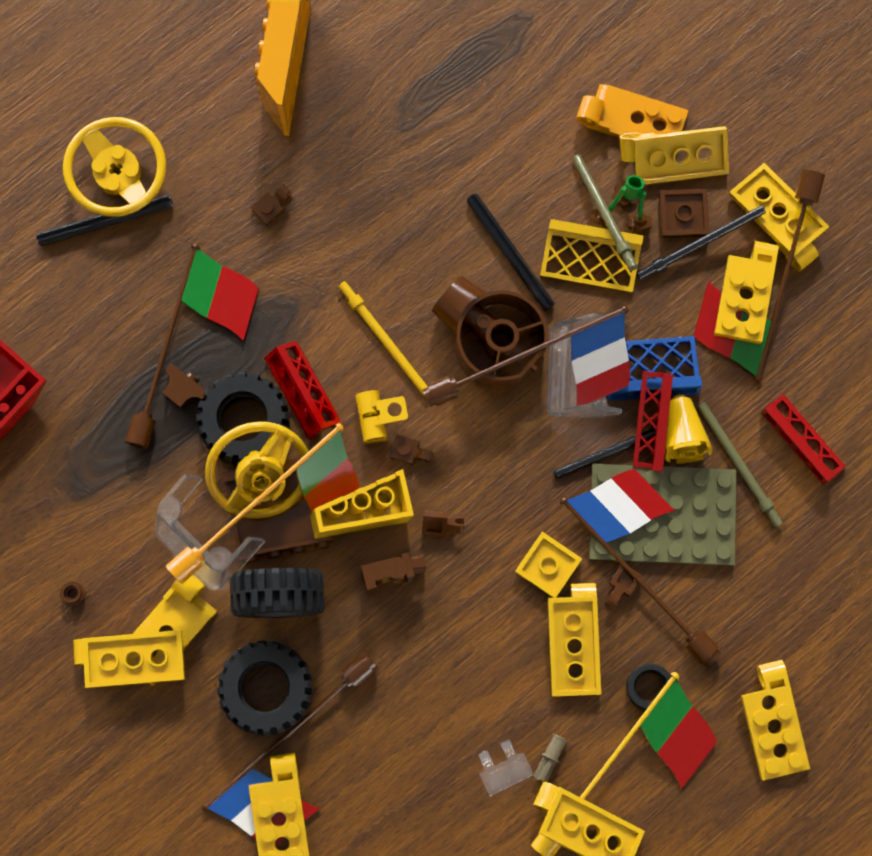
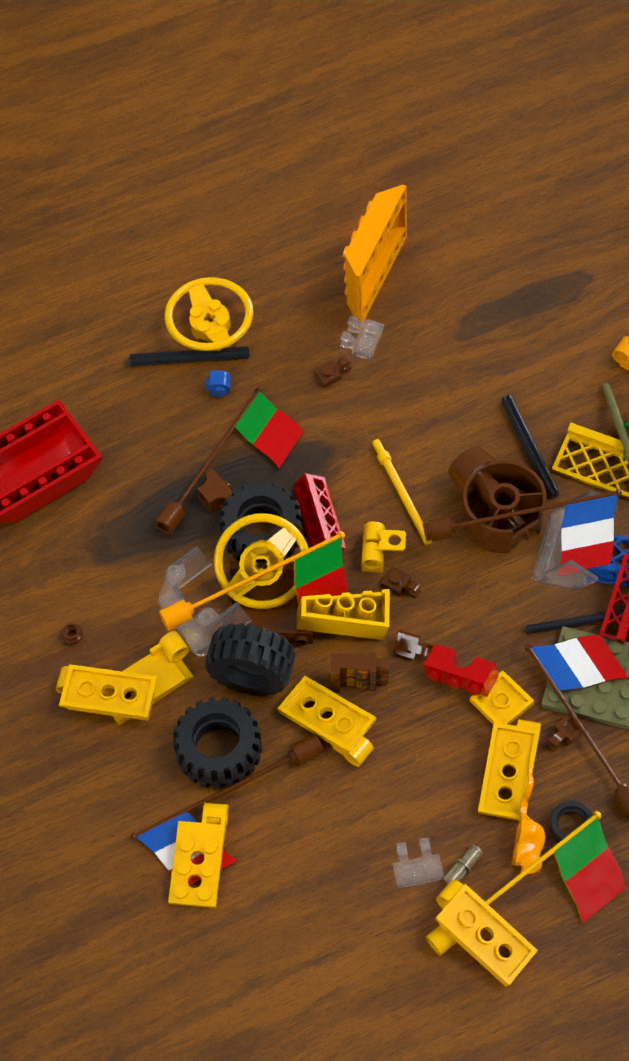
camera: 20 degrees right, 20 degrees down
(149, 250) = (219, 383): none -> blue plate
(300, 155) = (367, 340): none -> clear plate
(395, 634) = (342, 730): none -> yellow hinge
(519, 550) = (476, 678): none -> red arch
(610, 712) = (529, 834): none -> light orange animal

